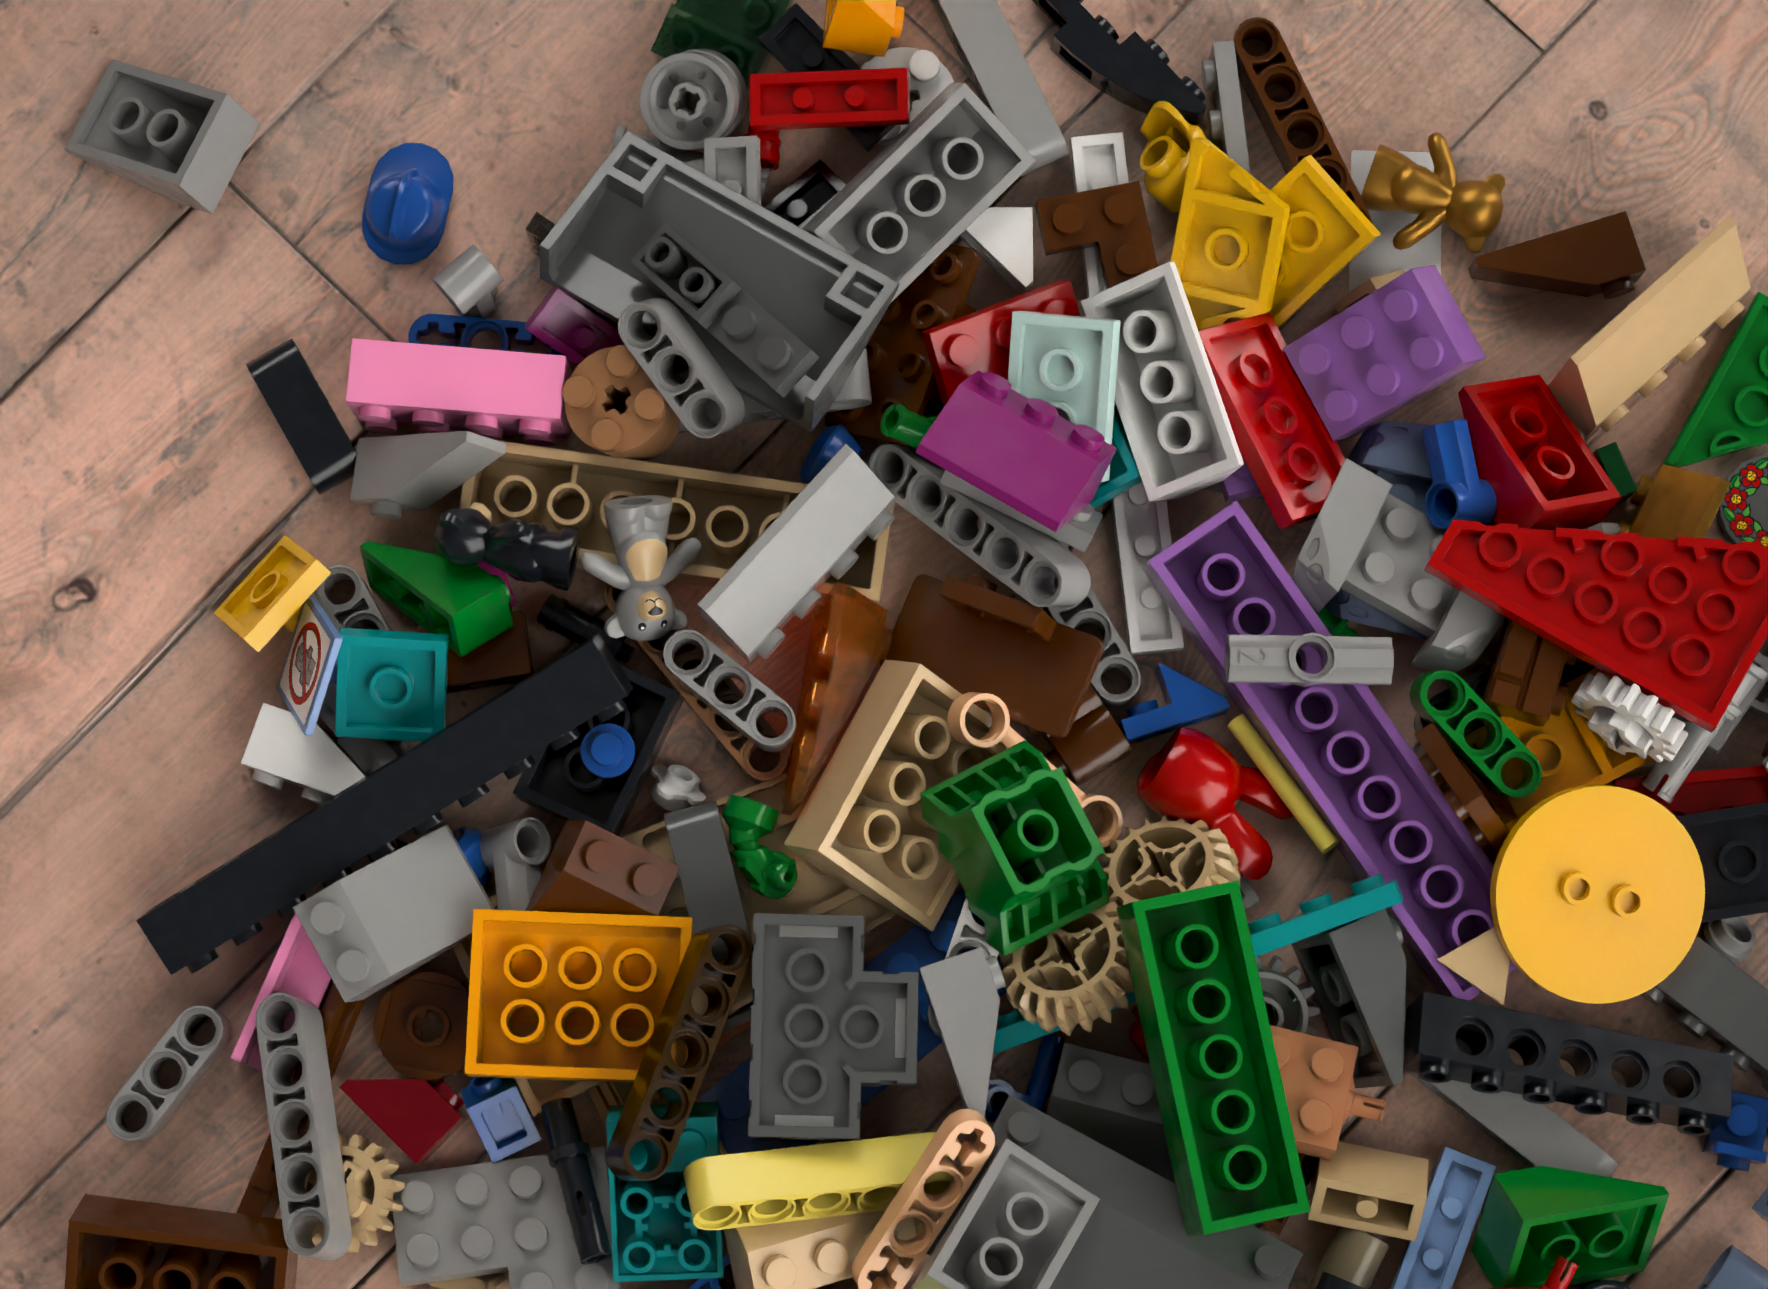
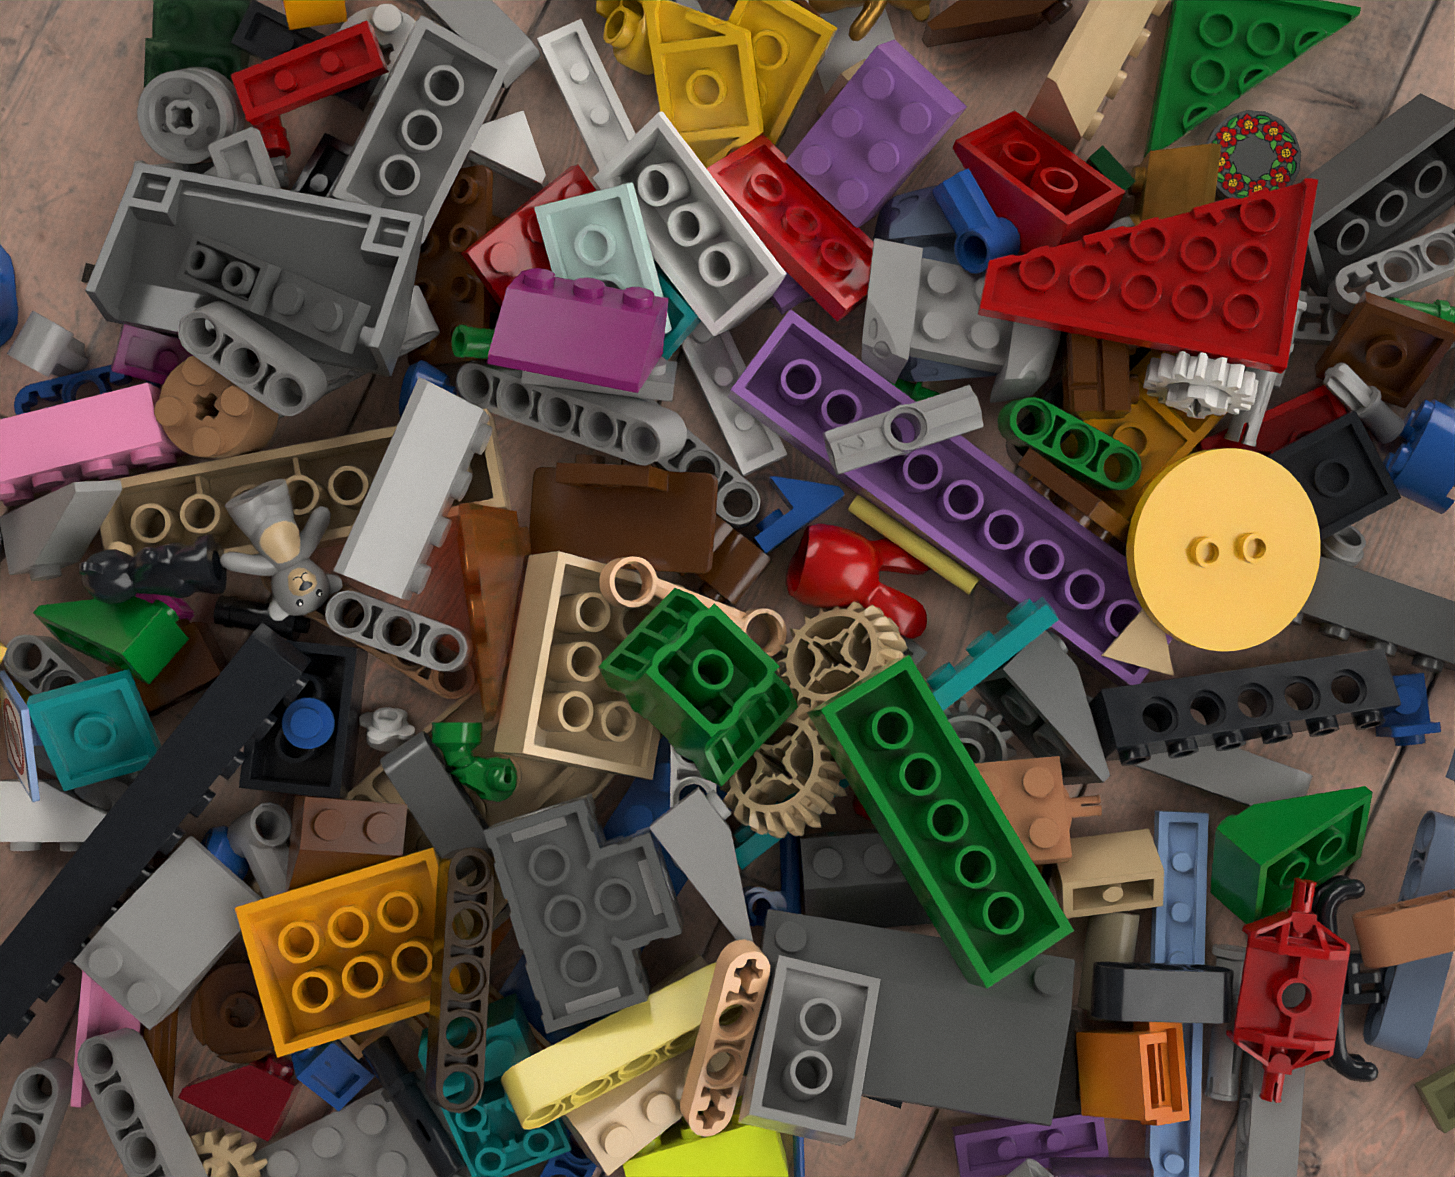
camera: 20 degrees left, 5 degrees up
(1104, 218) = (587, 100): reddish brown plate -> none

